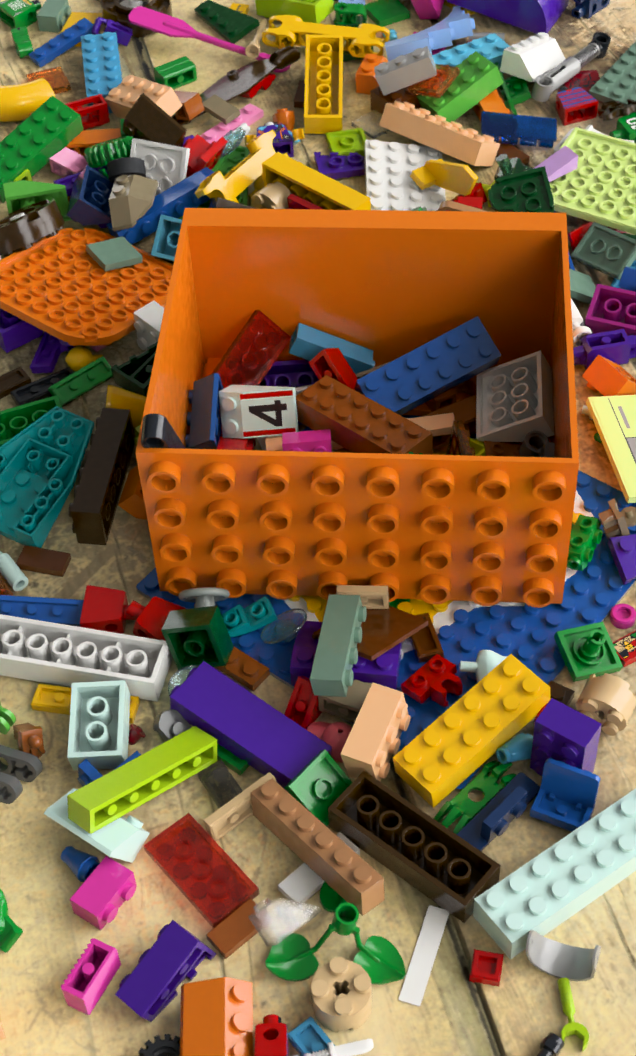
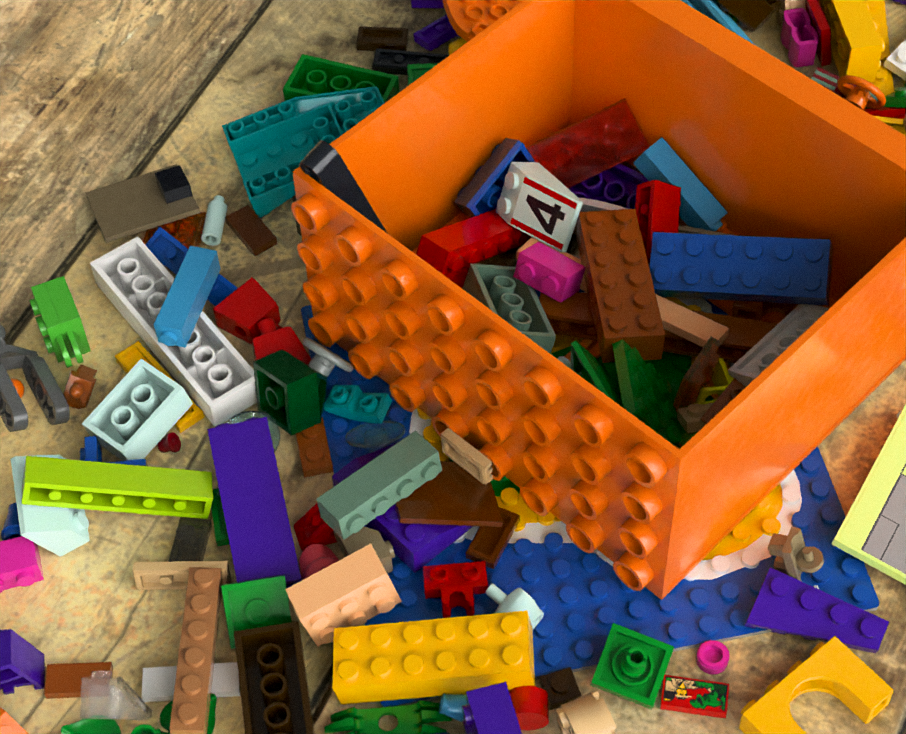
camera: 40 degrees right, 5 degrees up
(62, 621) = (187, 296): none -> dark azure brick
(170, 724) = (198, 456): dark grey plate -> none
(201, 870) = (98, 605): clear red plate -> none
(583, 541) = (735, 550): green brick -> none

